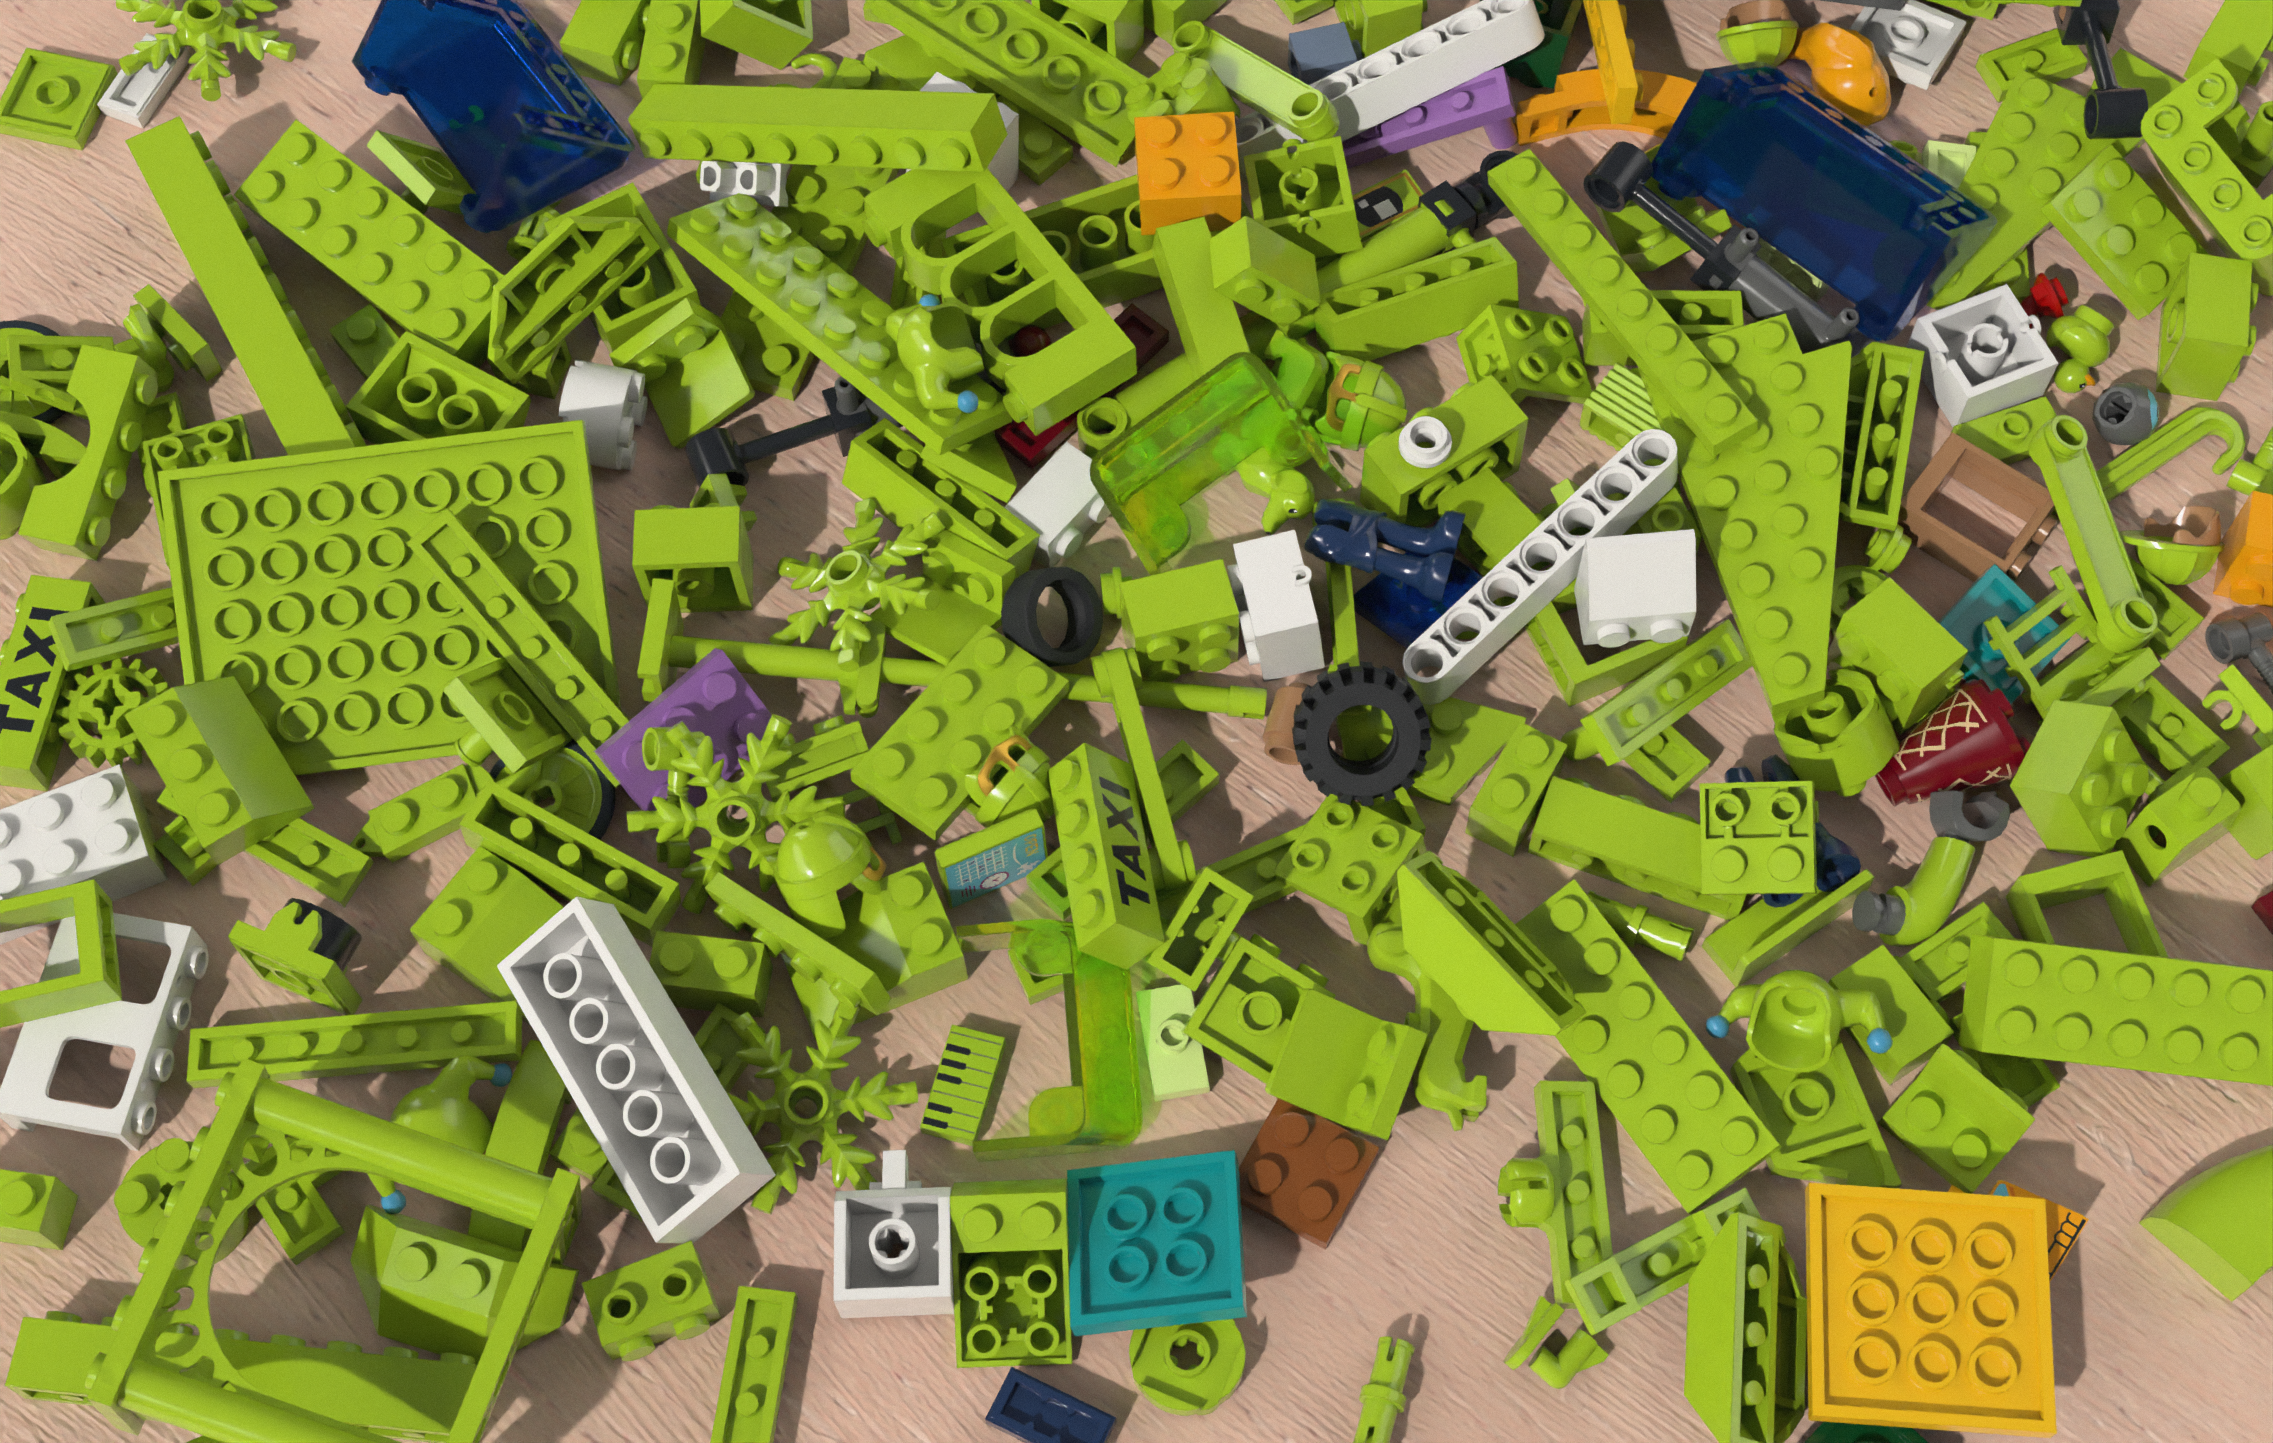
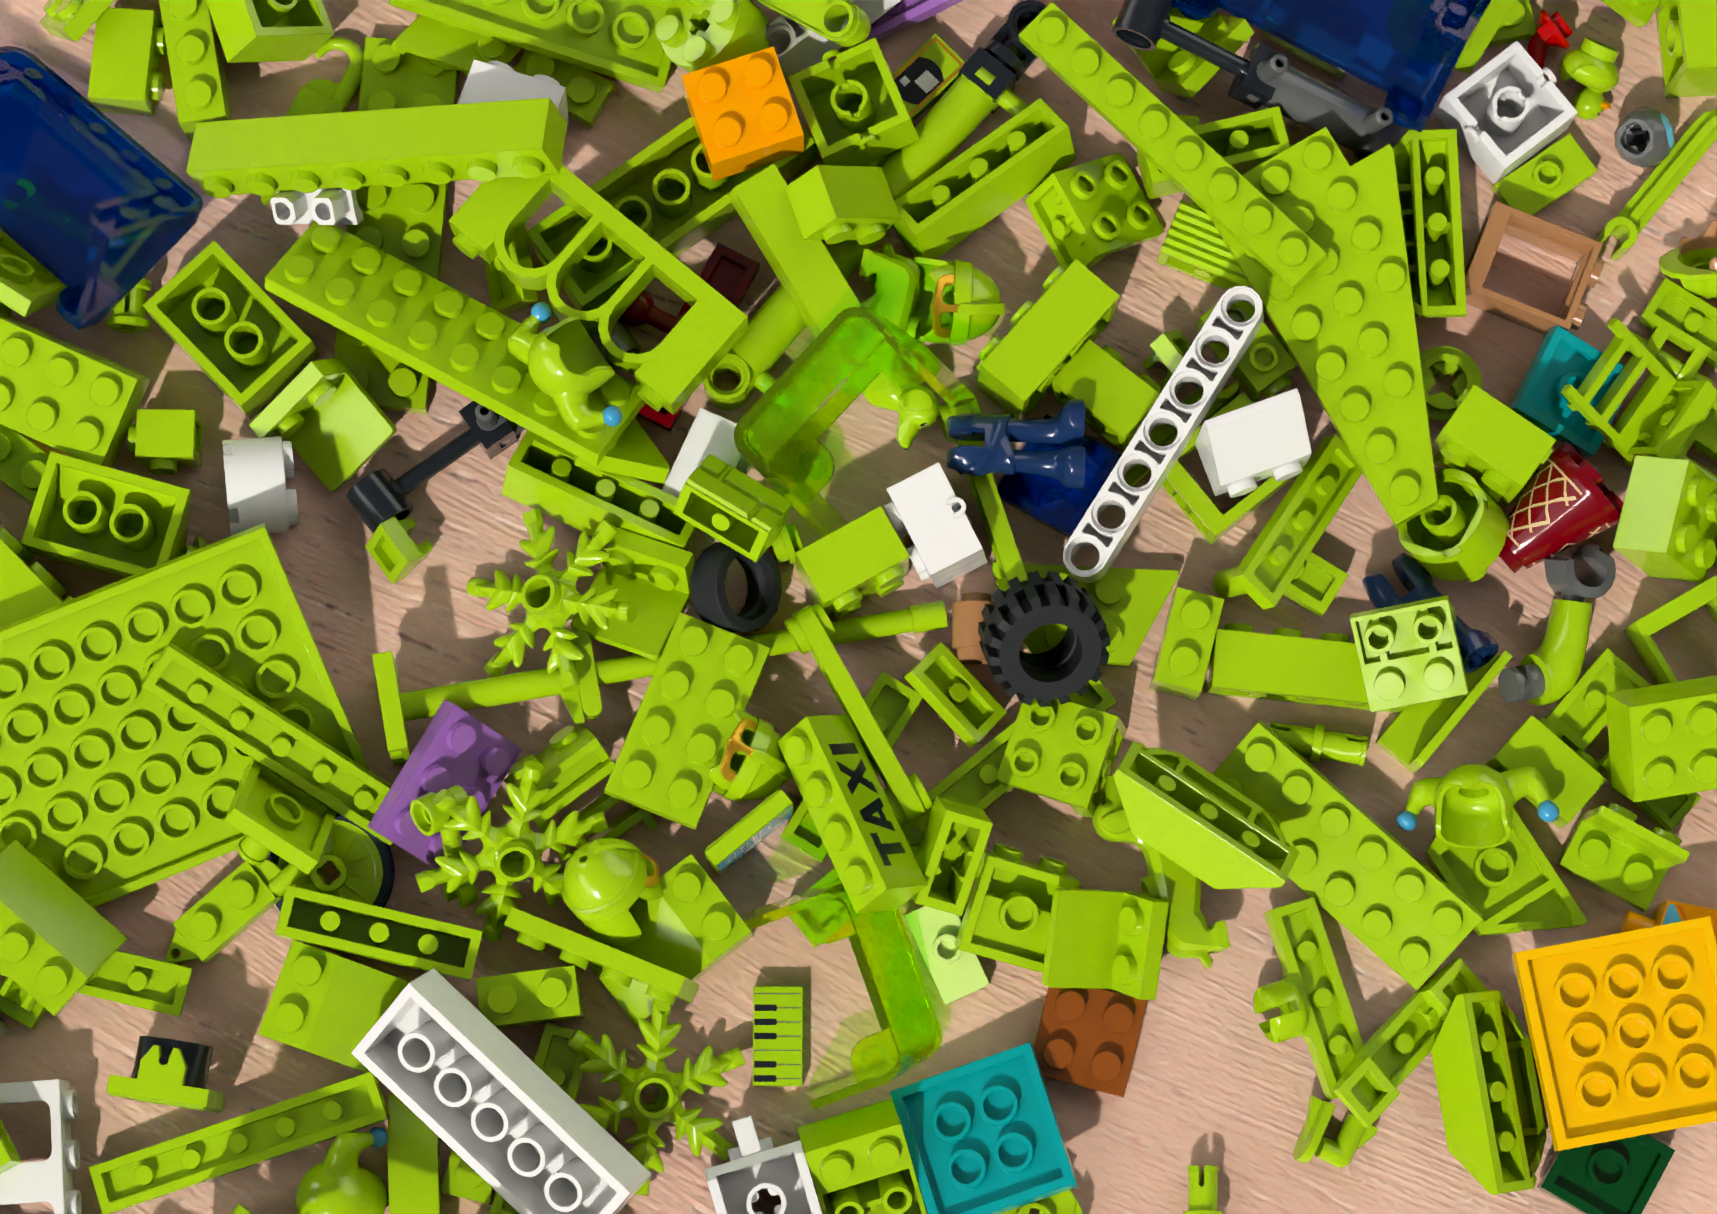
camera: 20 degrees left, 15 degrees up
(561, 286) = (185, 378): lime wedge -> none
(700, 550) = (393, 610): lime brick -> none
(1068, 530) = (732, 507): none -> lime brick
(1253, 781) = (955, 694): none -> lime plate
(1425, 430) = (1034, 334): white plate -> none
(1887, 549) = (1460, 330): lime plate -> none
(2092, 534) = (1637, 275): lime piece -> none

